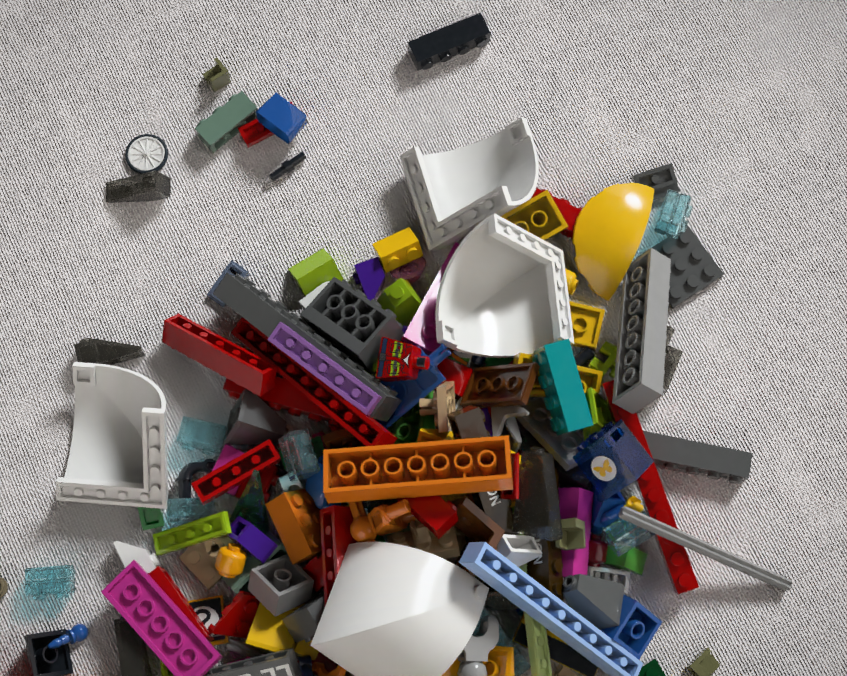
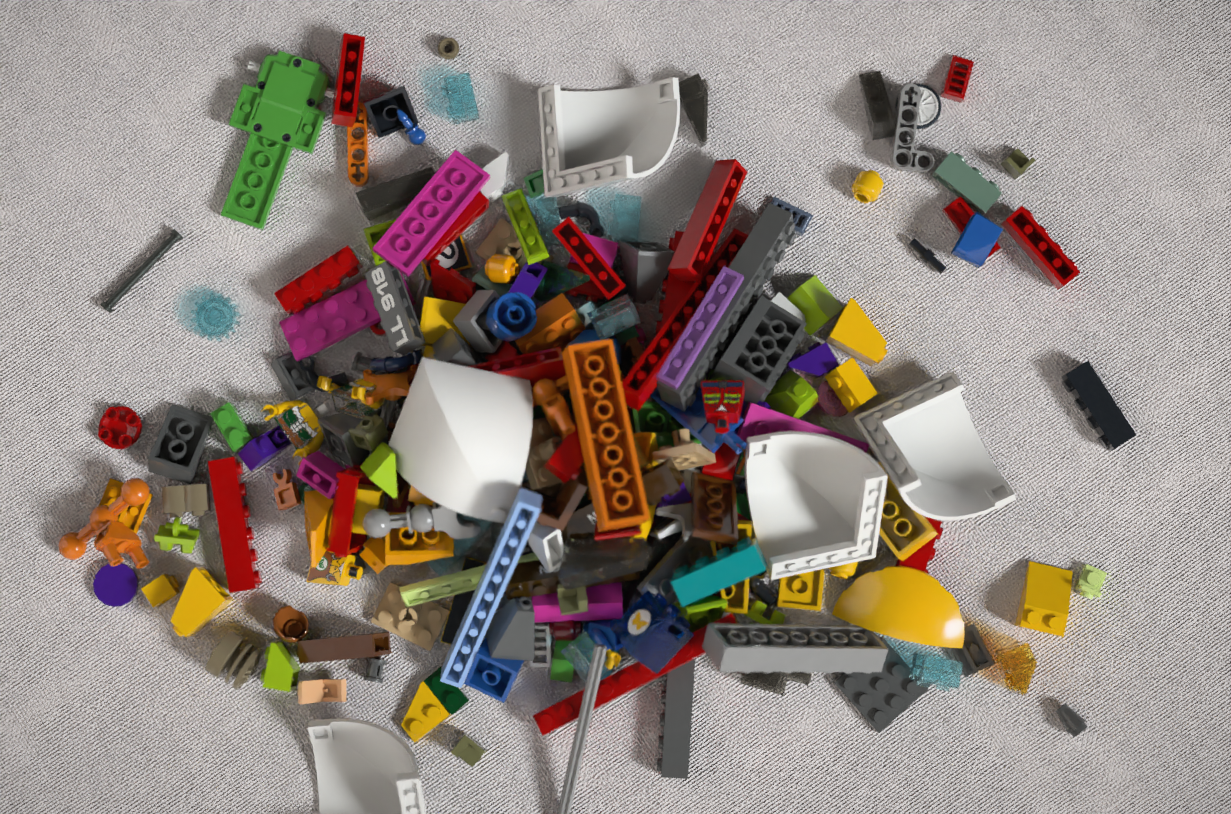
camera: 80 degrees right, 10 degrees up
(141, 123) = (951, 94): none -> red slope
(167, 161) = (909, 128): none -> light grey beam
(213, 208) = (867, 186): none -> yellow head
(281, 554) = (523, 317): none -> blue brick
(298, 66) = (1040, 247): none -> red brick
(351, 236) = (857, 335): none -> yellow slope
(606, 73) = (1090, 582): none -> yellowish green bracket
(617, 113) = (1045, 599): none -> yellow slope
(676, 142) = (1017, 665): none -> clear yellow slope
(730, 106) = (1071, 720): none -> dark grey cone

